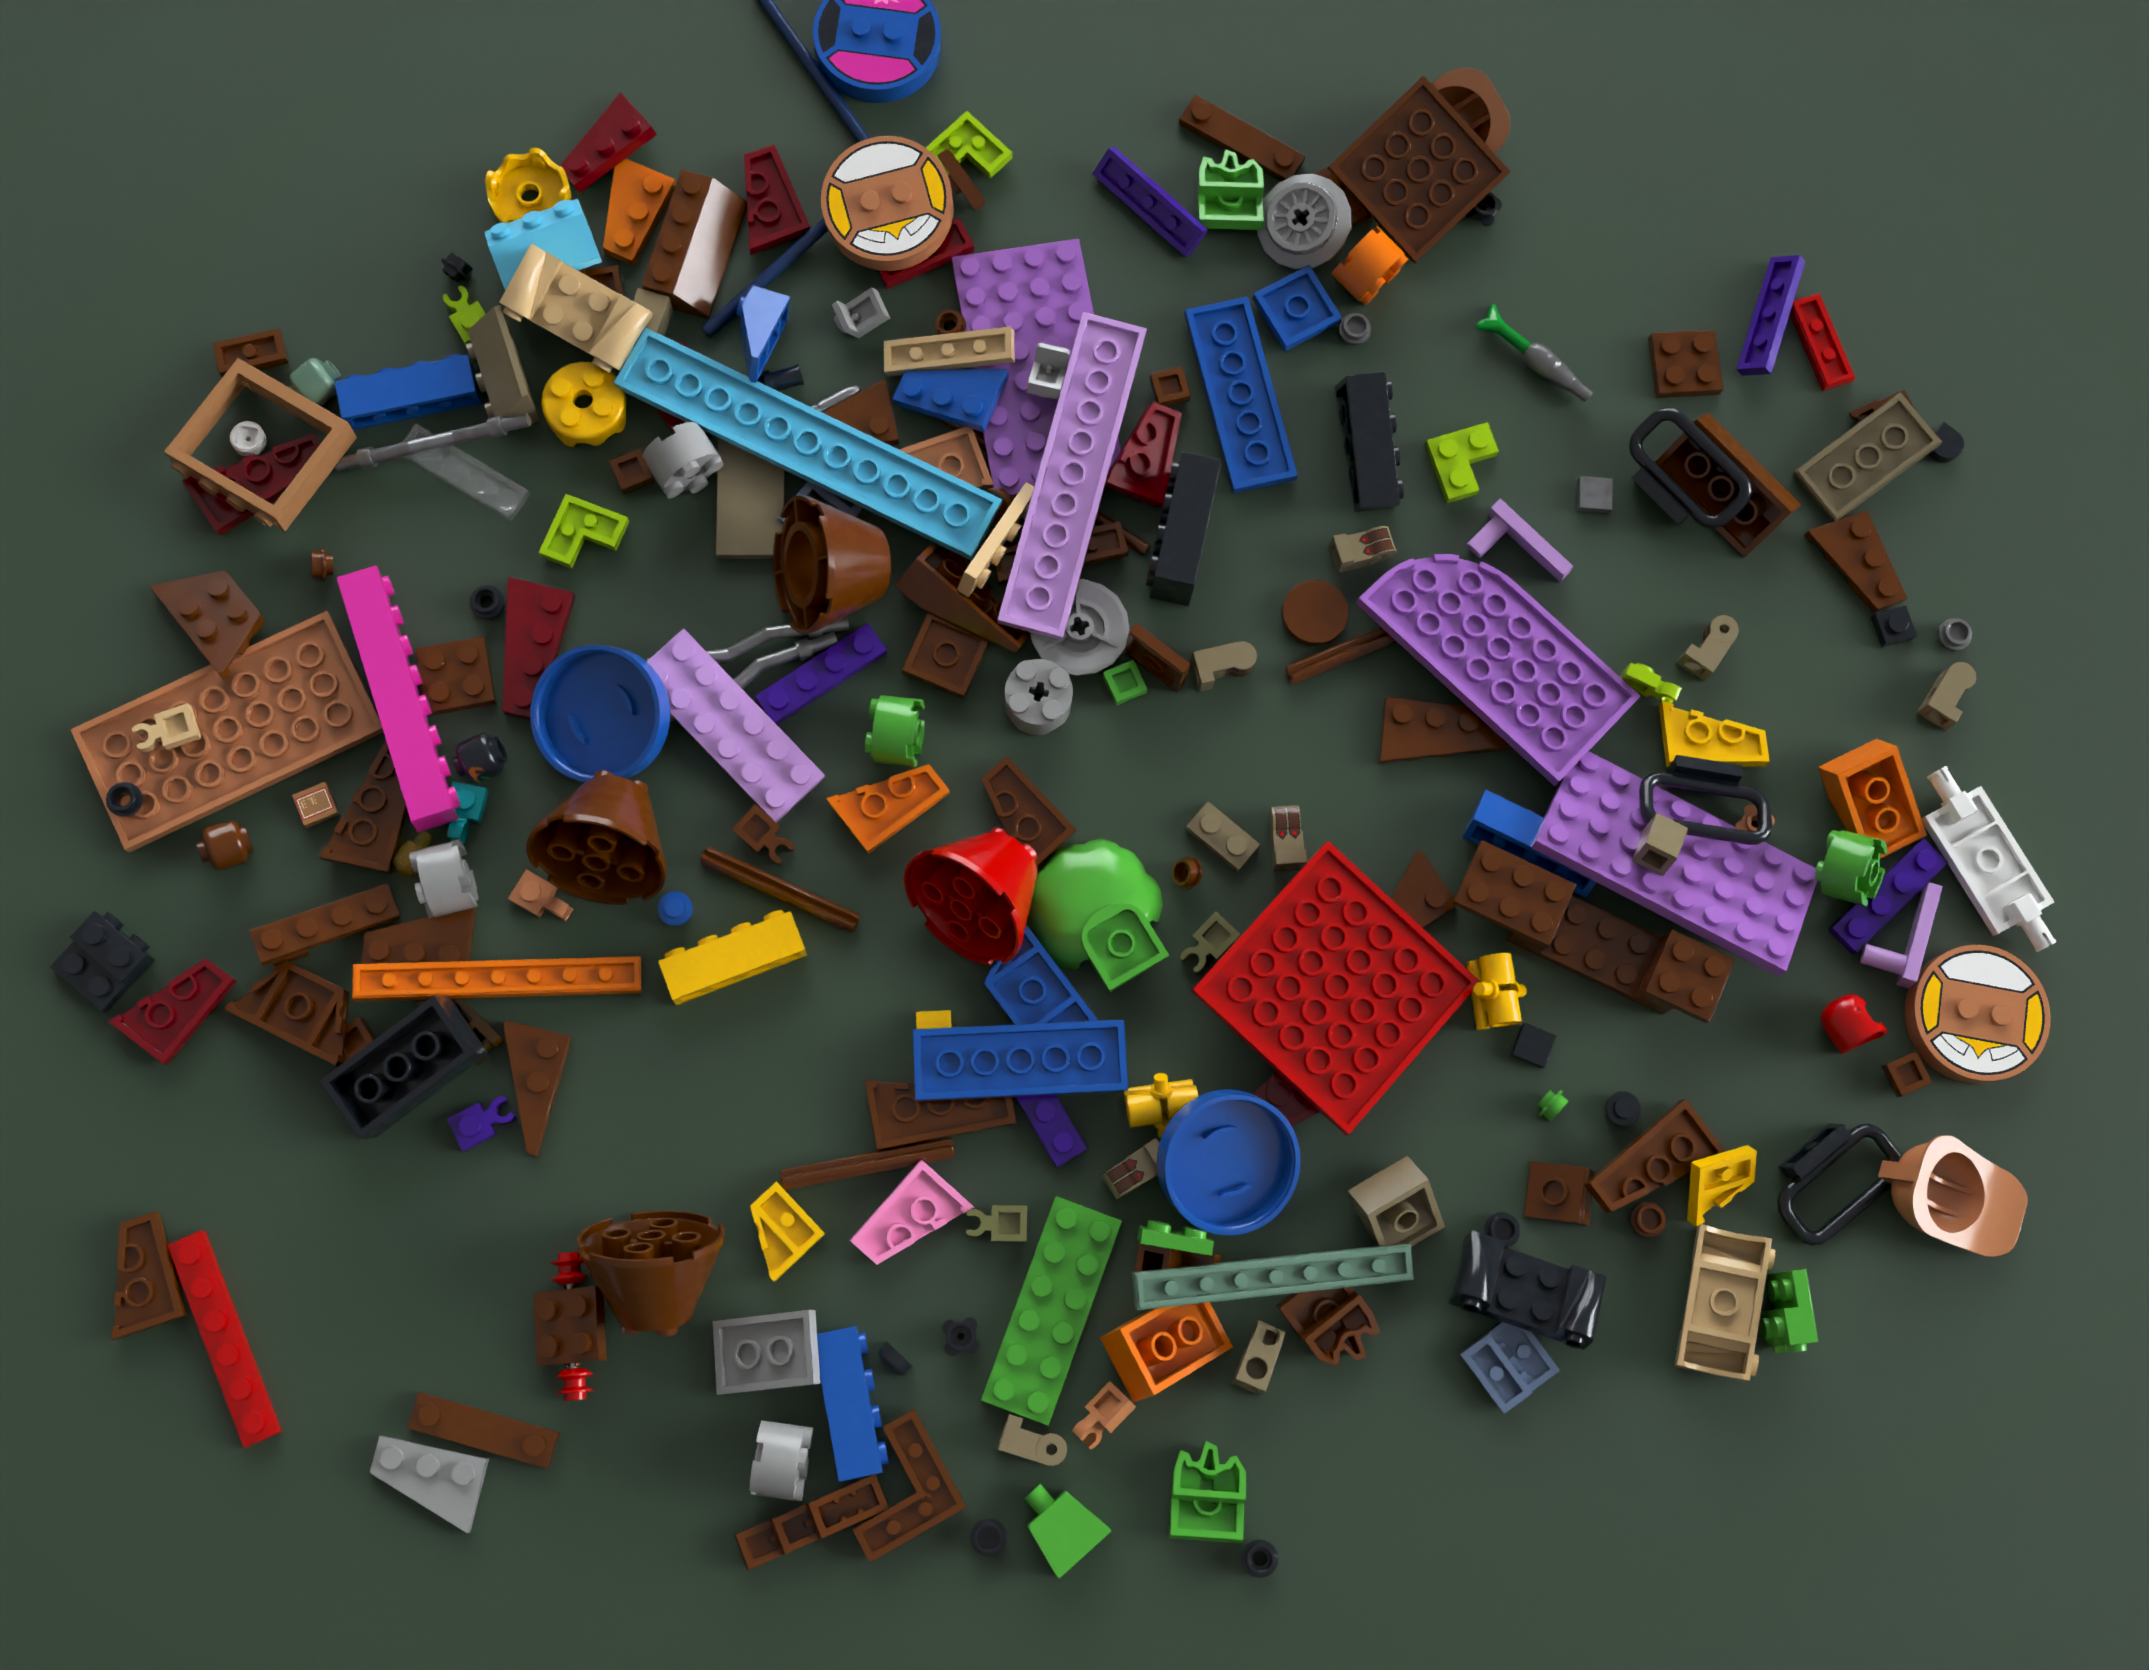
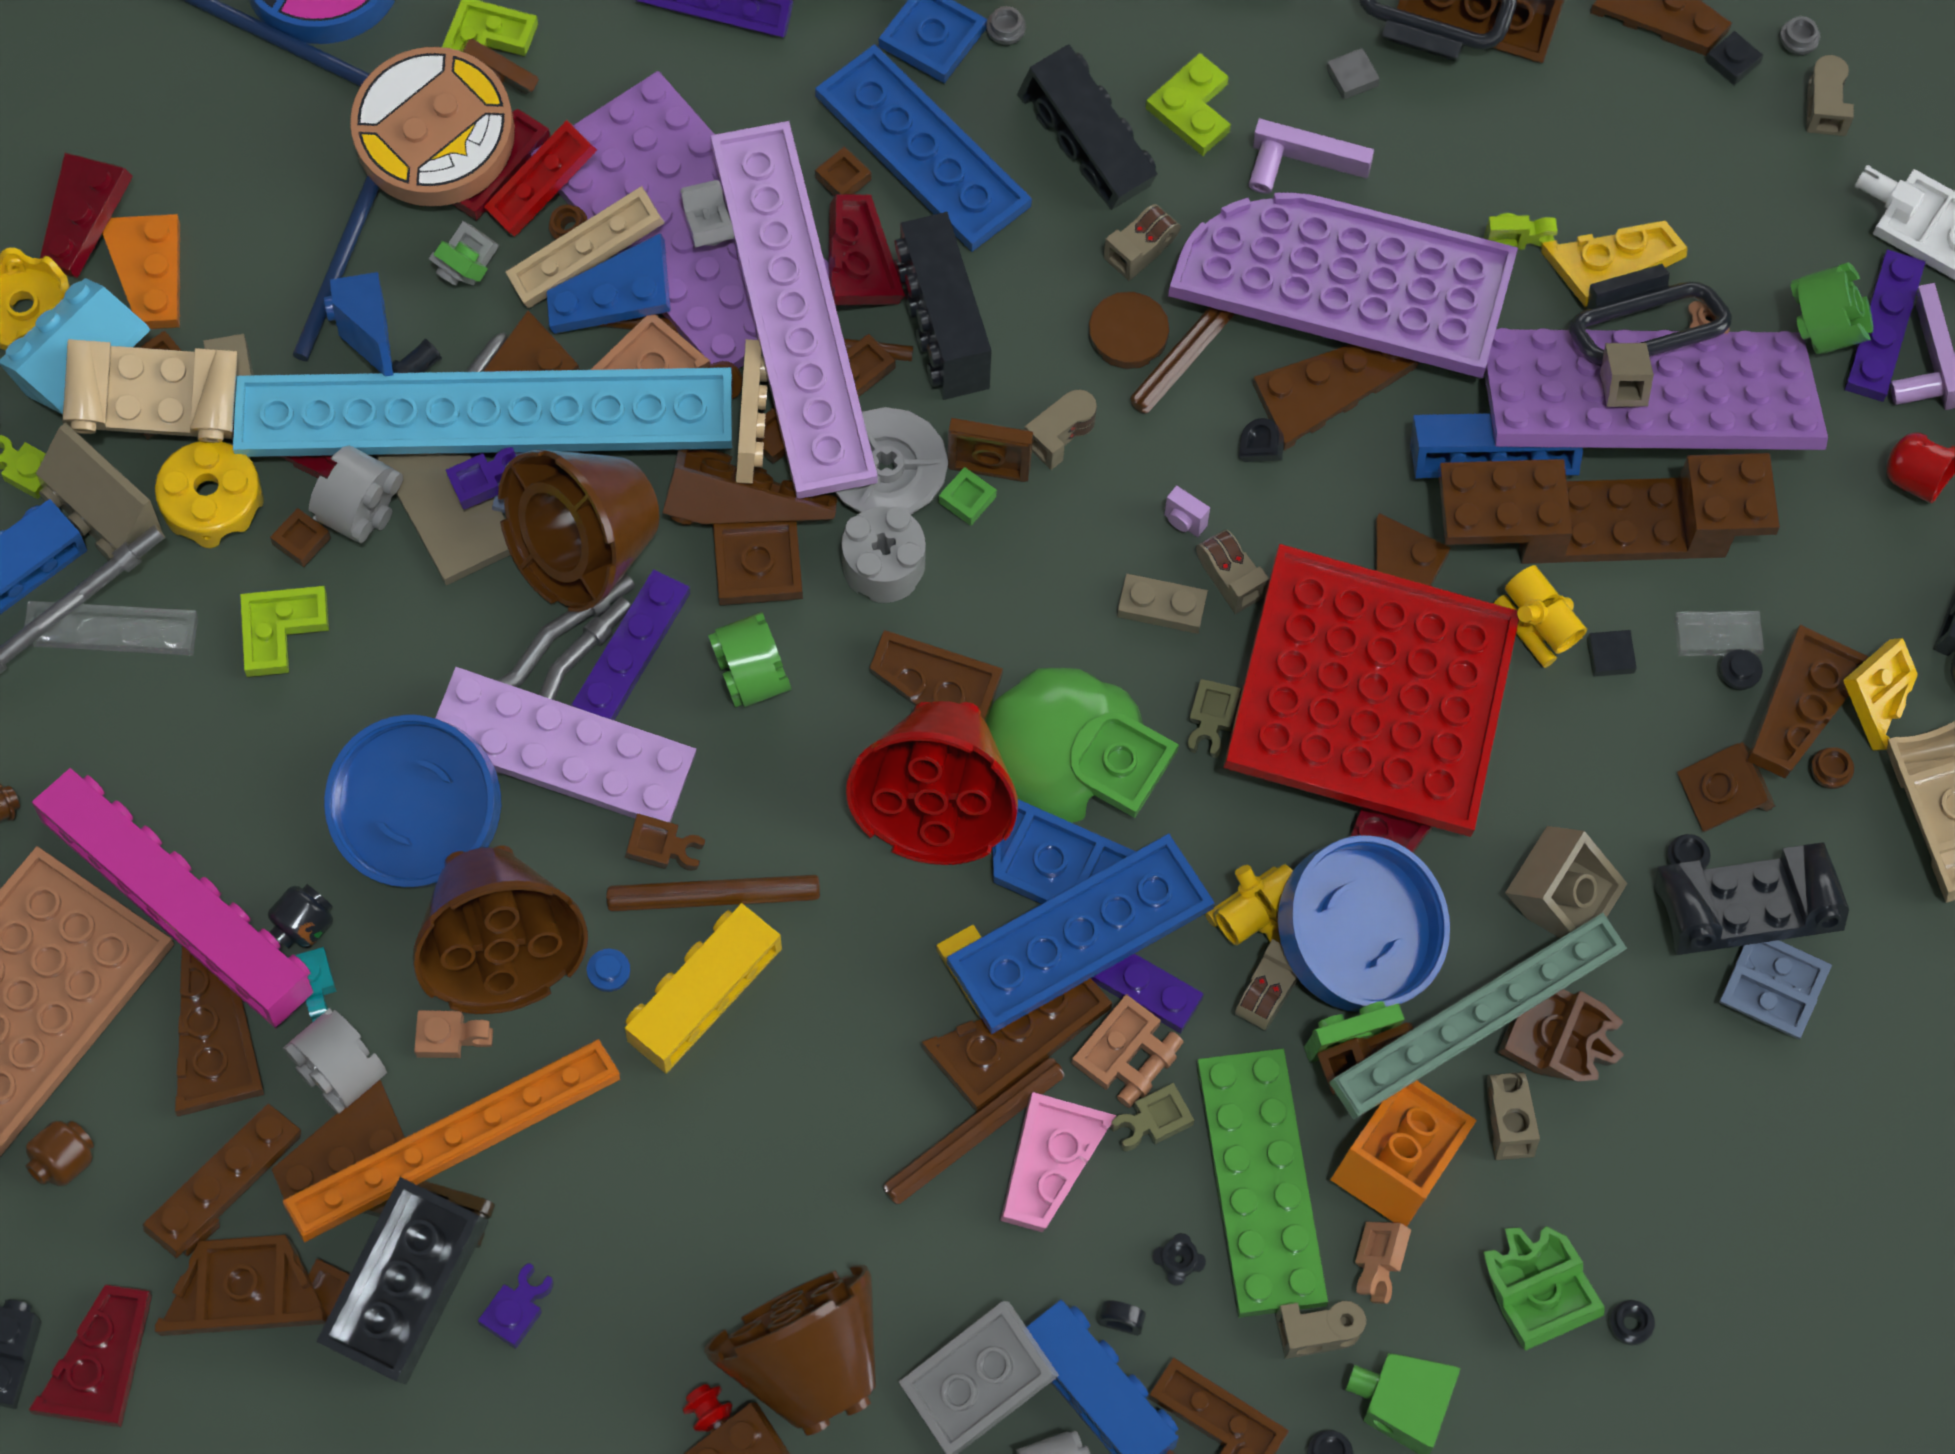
camera: 20 degrees left, 10 degrees down
(315, 804) = (137, 1062): medium nougat tile -> none
(402, 861) = (276, 1066): clear yellow cylinder -> none
(456, 675) = (223, 844): reddish brown plate -> none
(483, 593) = (208, 742): black plate -> none
(533, 639) = (287, 764): dark red wing -> none
(536, 1067) = (547, 1213): reddish brown wing -> none
(695, 243) = (239, 268): reddish brown slope -> none
(771, 201) = (298, 187): dark red wing -> none
(775, 490) = (478, 479): none -> dark purple plate
(783, 1230) = (921, 1245): yellow wing -> none
(853, 317) = (462, 259): none -> bright green plate
(888, 806) = (783, 749): orange wing -> none
(945, 281) = (540, 178): none -> red plate
(1004, 1153) = (1118, 1041): none -> nougat plate
(1186, 872) = (1139, 660): reddish brown plate -> none
(1277, 777) = (1186, 512): none -> lavender plate
(1364, 750) = (1261, 441): none -> black tile
(1552, 1104) = (1666, 701): bright green plate -> none
(1622, 1071) = (1718, 632): none -> clear plate
(1715, 643) = (1563, 157): dark tan leg -> none
(1874, 794) = (1811, 228): orange slope -> none

